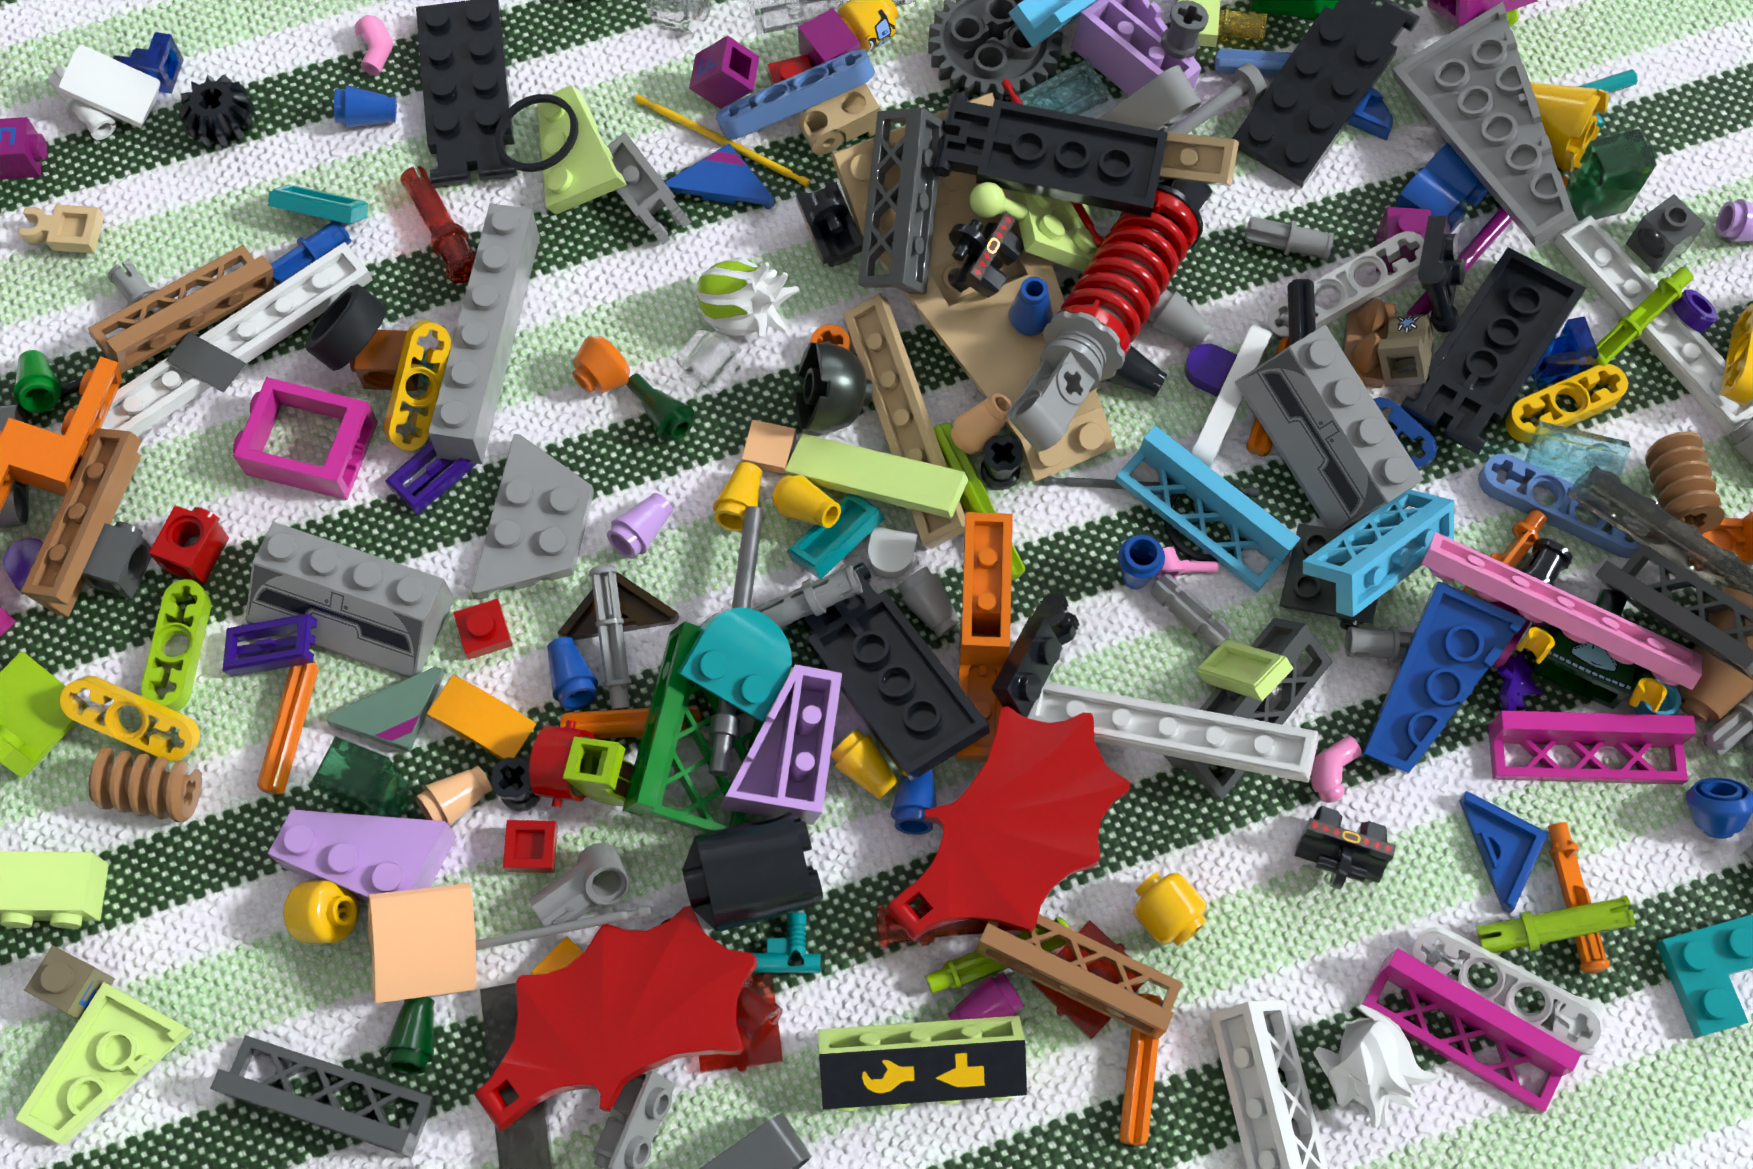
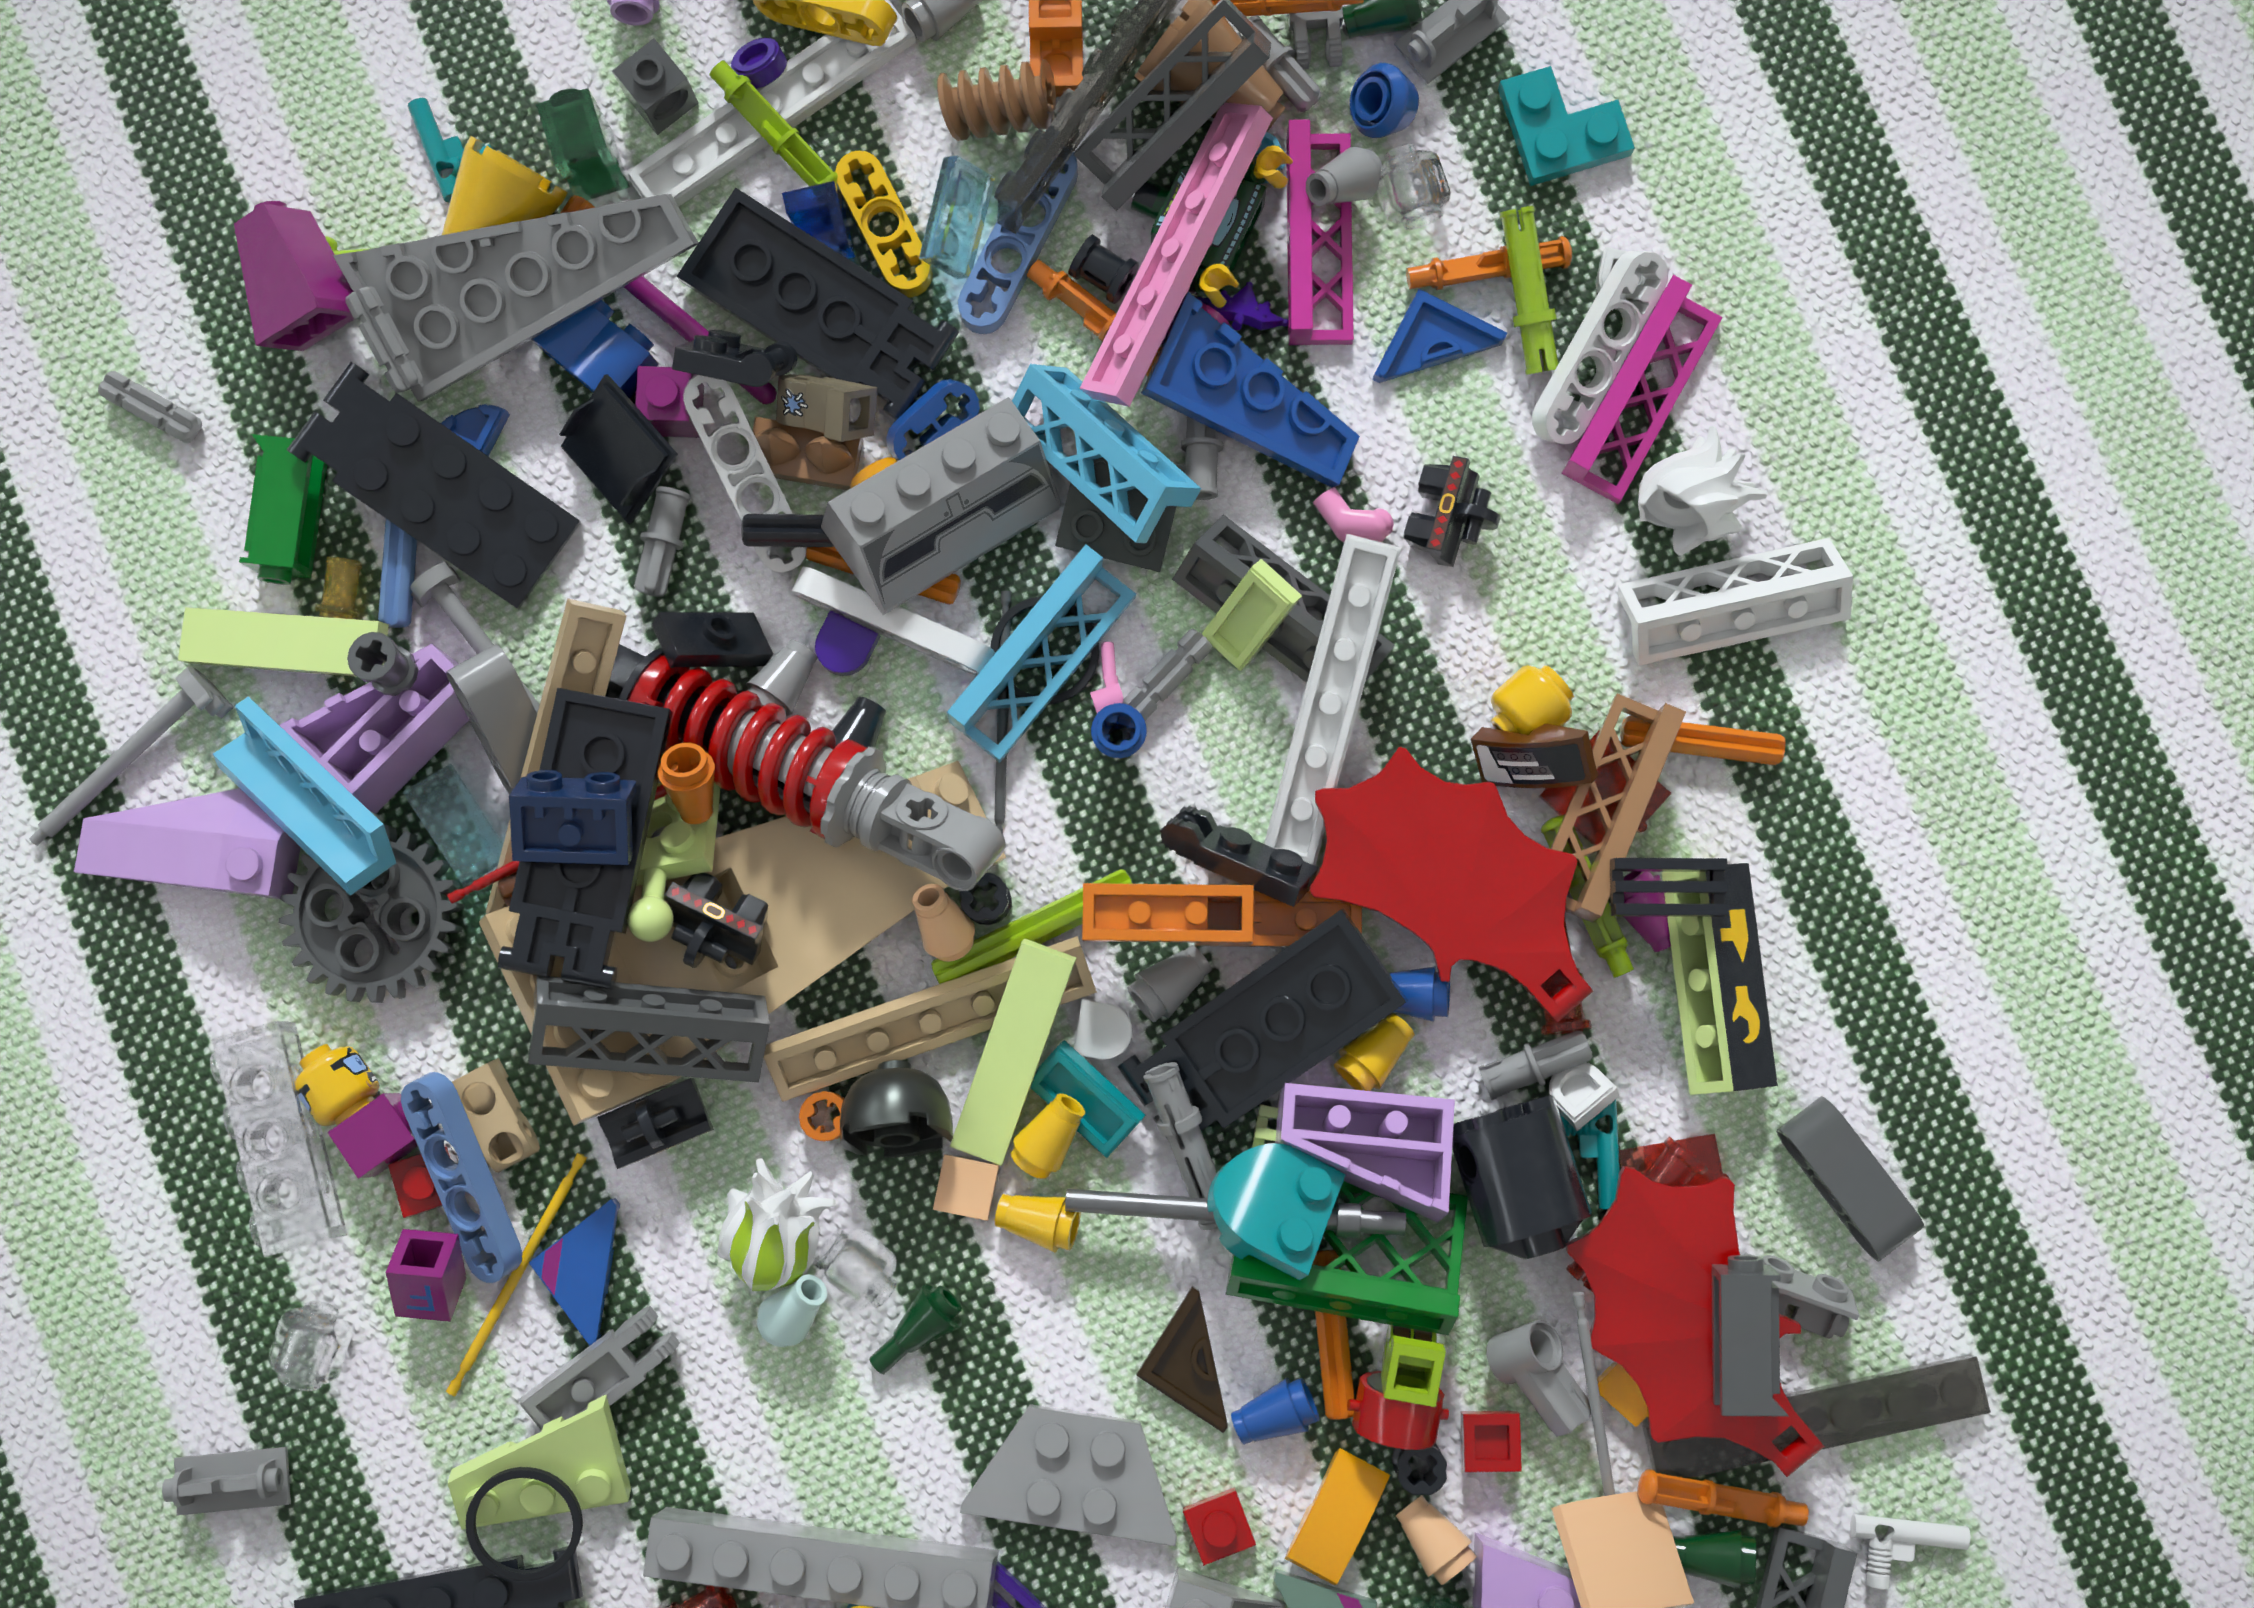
camera: 85 degrees left, 15 degrees up
(461, 1041) = (1720, 1499): none -> orange piece
(598, 1047) = (1746, 1337): none -> dark grey window
(600, 366) = (866, 1410): orange cone -> none
(611, 635) = (1229, 1366): light grey piece -> none
(639, 526) = (1080, 1341): lavender cone -> none
(678, 313) = (789, 1313): none -> light aqua cone
(823, 937) = (1582, 1093): none -> white tile
(850, 898) = (1535, 1063): none -> light grey axle
(1005, 955) = (1716, 887): none -> black tile
(1031, 307) = (805, 869): blue cone -> none
(1065, 133) = (572, 818): none -> dark blue bracket
(1095, 226) = (689, 781): none -> orange cone
(1121, 906) = (1543, 759): none -> slope
(1210, 262) = (712, 639): none -> black plate
(1363, 199) = (617, 448): none -> black piece
(1439, 37) = (384, 339): none -> light grey axle
(1642, 826) = (1412, 187): none -> clear head
(1644, 764) = (1345, 178): none -> light grey cone

